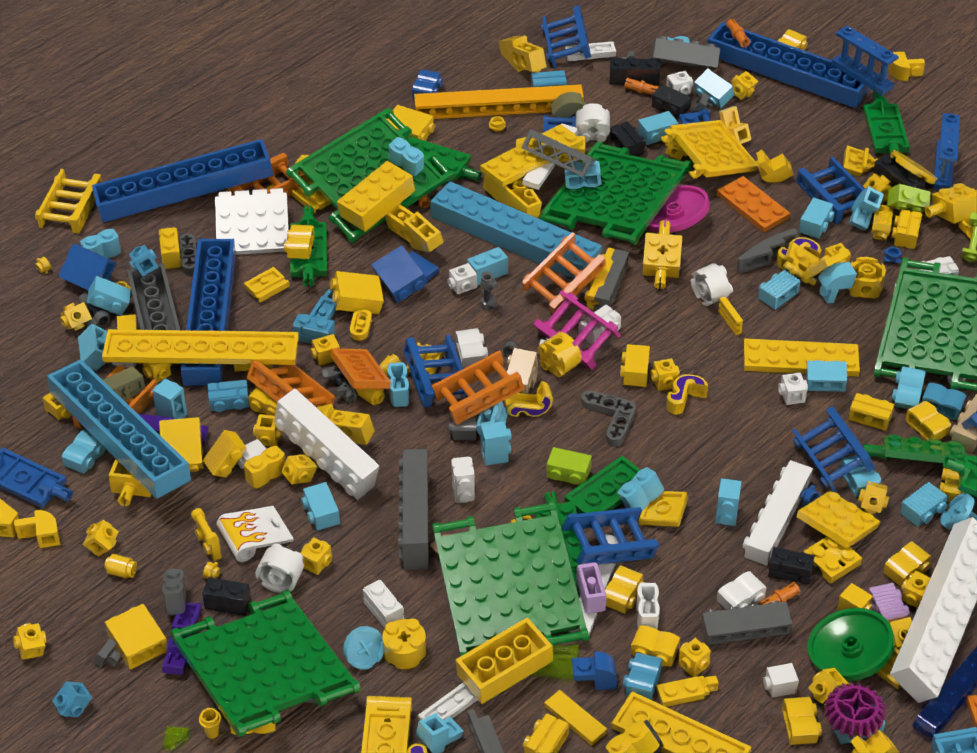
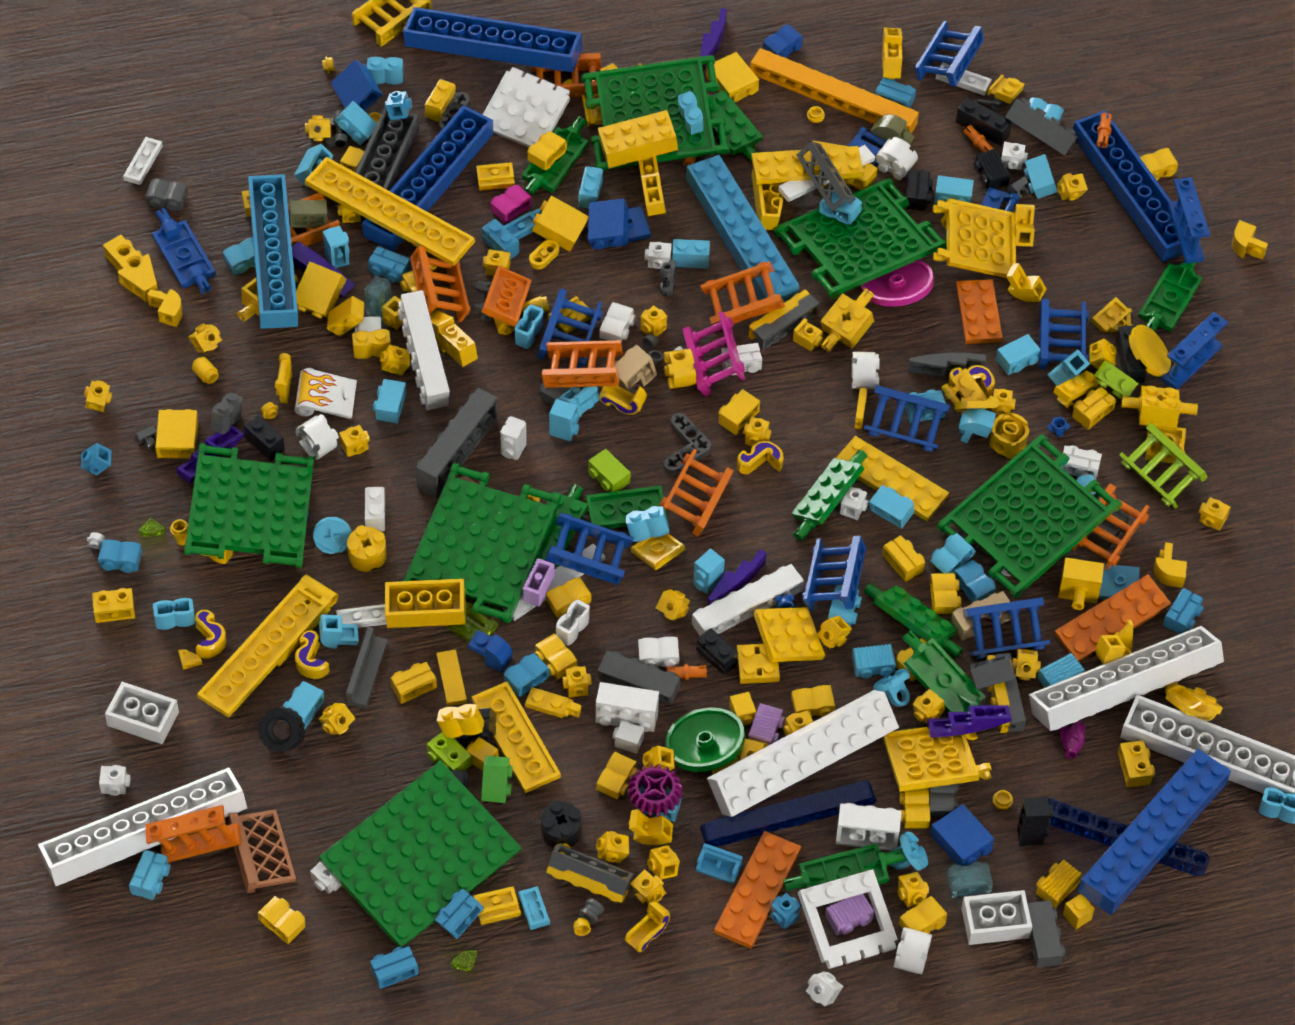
camera: 30 degrees right, 10 degrees up
(243, 421) = (377, 295): none -> clear light blue brick
(298, 298) = (511, 203): none -> dark pink brick
(358, 255) = (590, 186): none -> medium azure brick
(365, 101) = (712, 41): none -> dark purple slope
(501, 331) = (653, 321): none -> yellow brick
(631, 43) = (1006, 89): none -> yellow plate
(637, 282) = (807, 335): none -> yellow brick
(673, 438) = (713, 492): none -> orange fence
(713, 543) = (673, 604): none -> yellow brick
(751, 500) = (742, 576): none -> dark purple slope
(754, 652) = (627, 704): none -> white brick
(767, 391) = (827, 493): none -> green plate
(782, 285) = (902, 400): none -> blue fence

